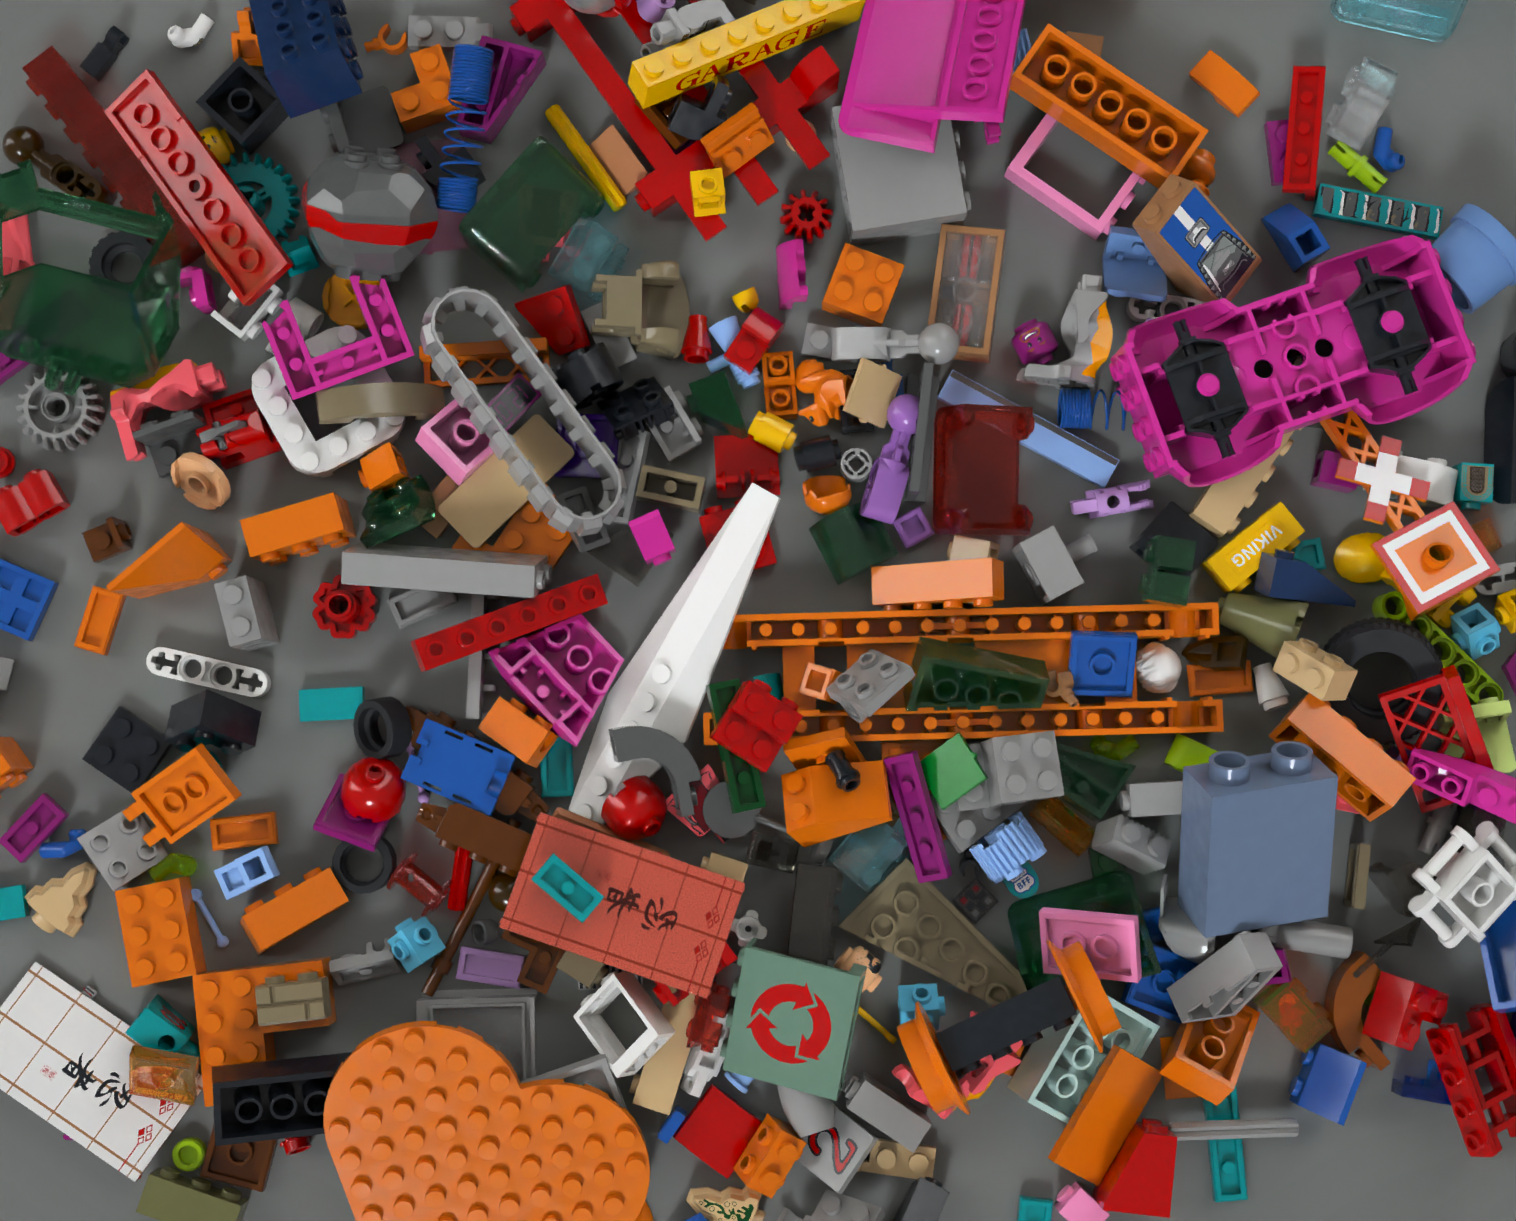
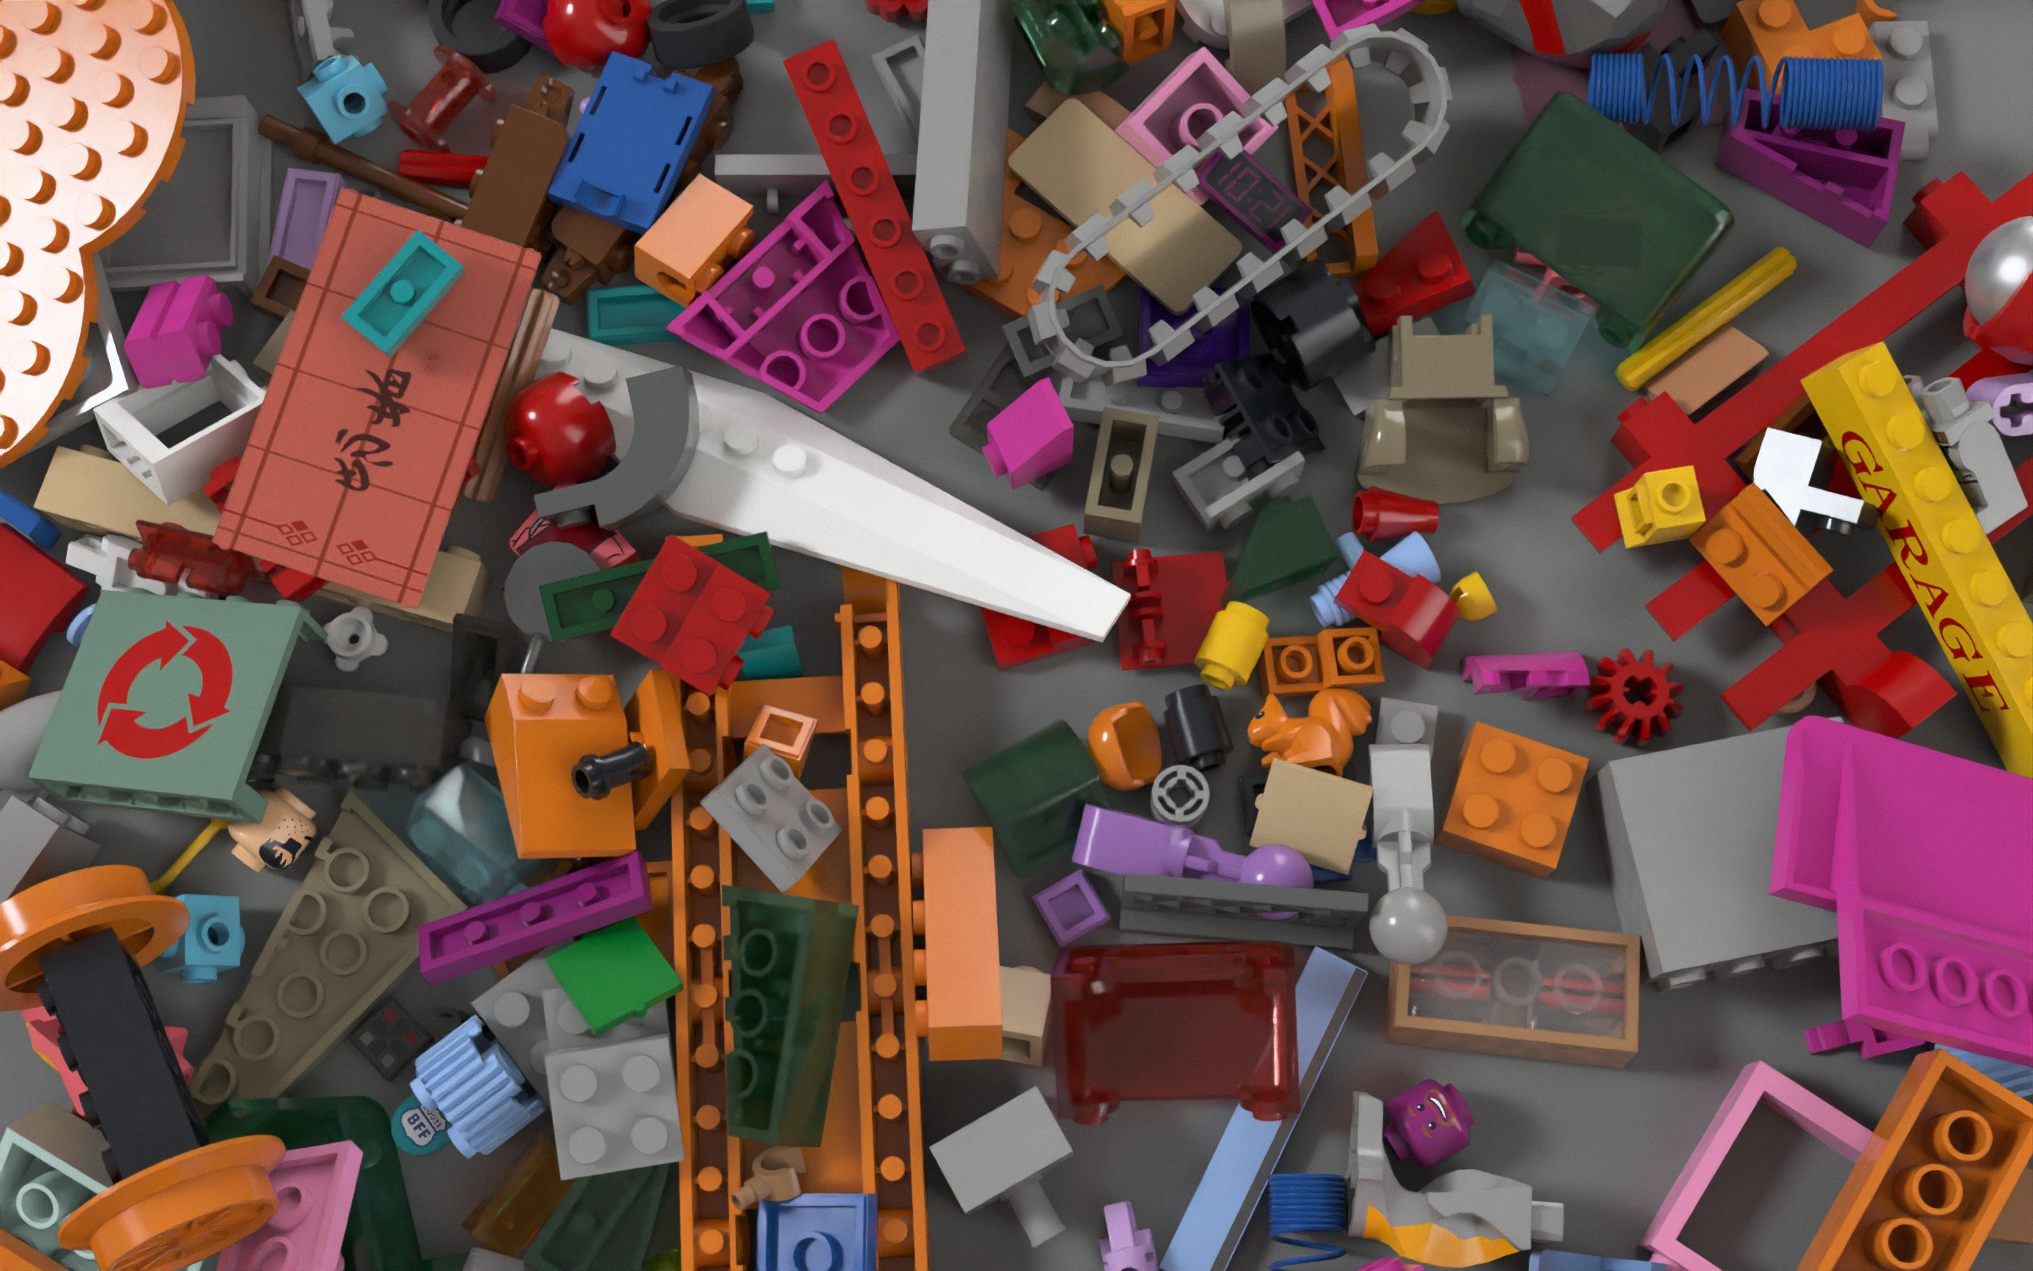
camera: 90 degrees right, 10 degrees down
(567, 1032) = (178, 331): none -> dark pink brick

